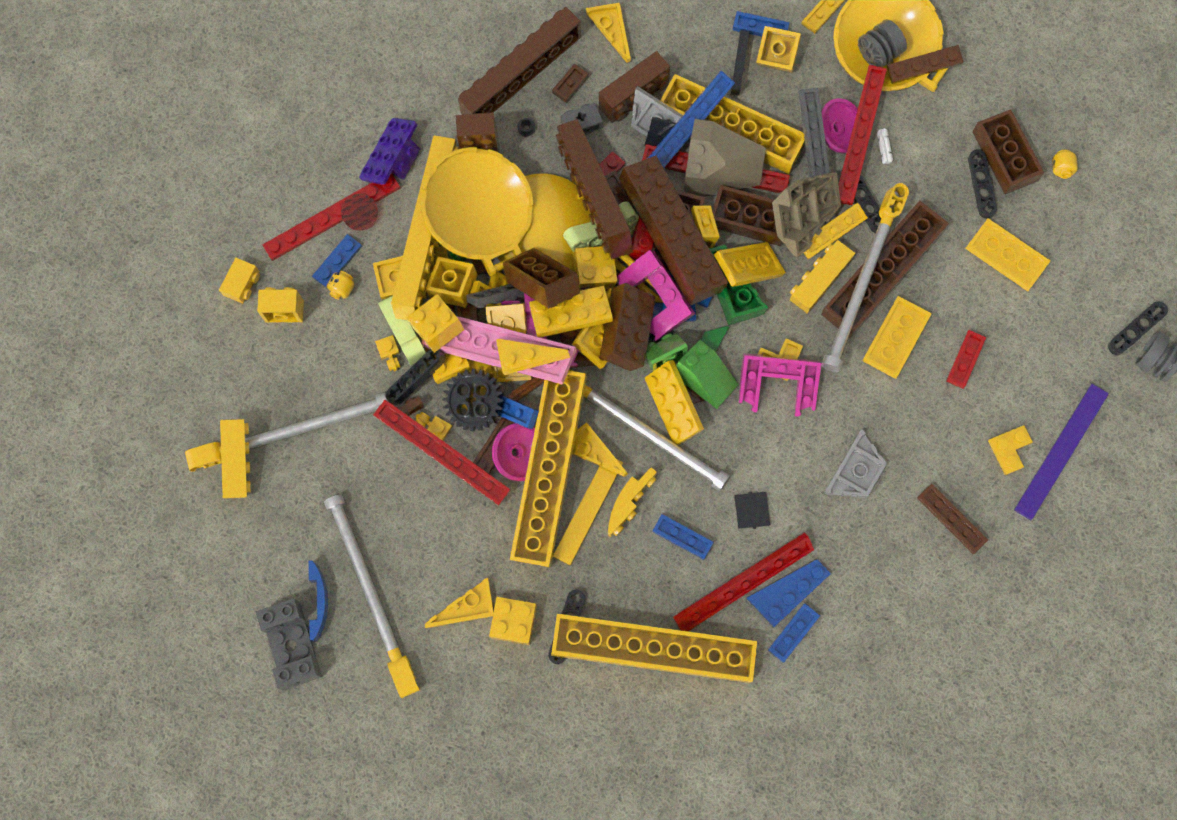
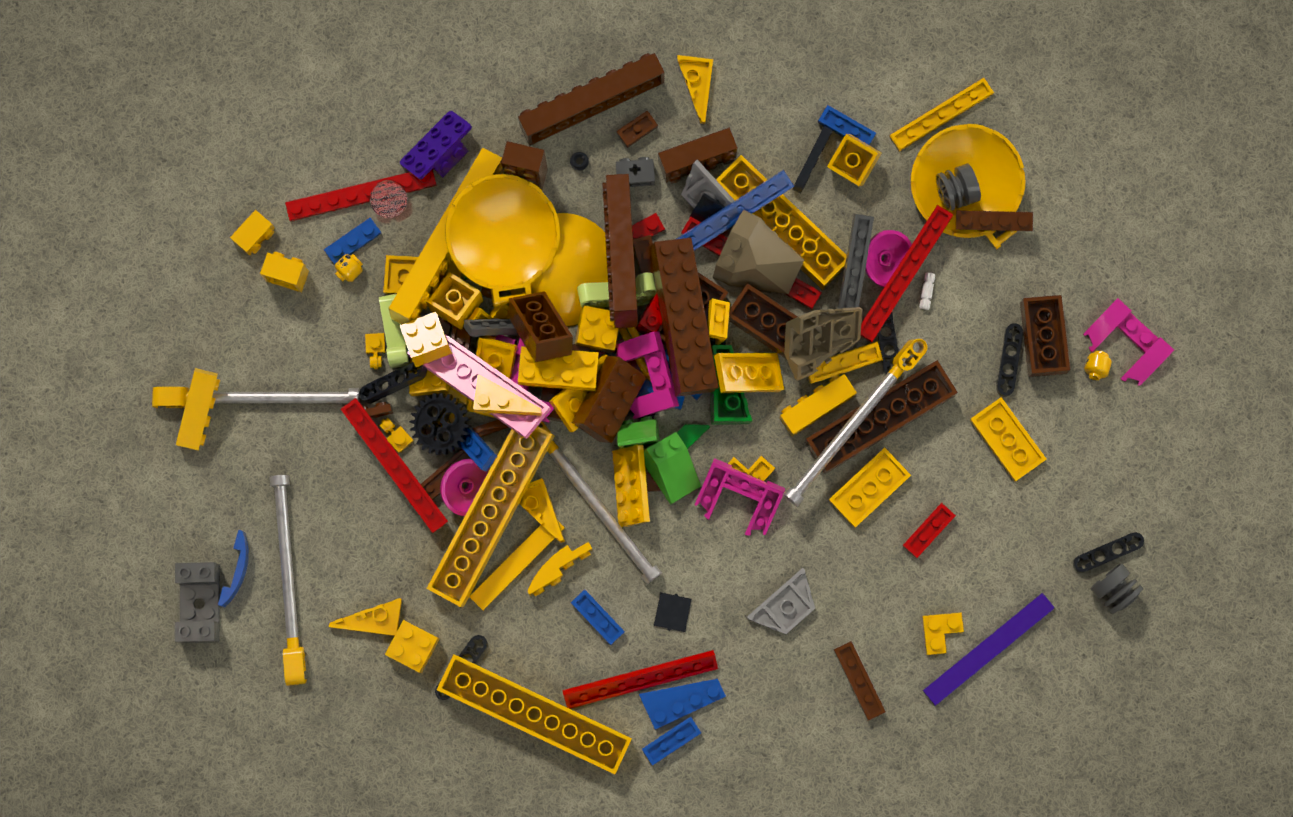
camera: 15 degrees right, 5 degrees up
(1109, 135) = (1154, 348): none -> dark pink wedge

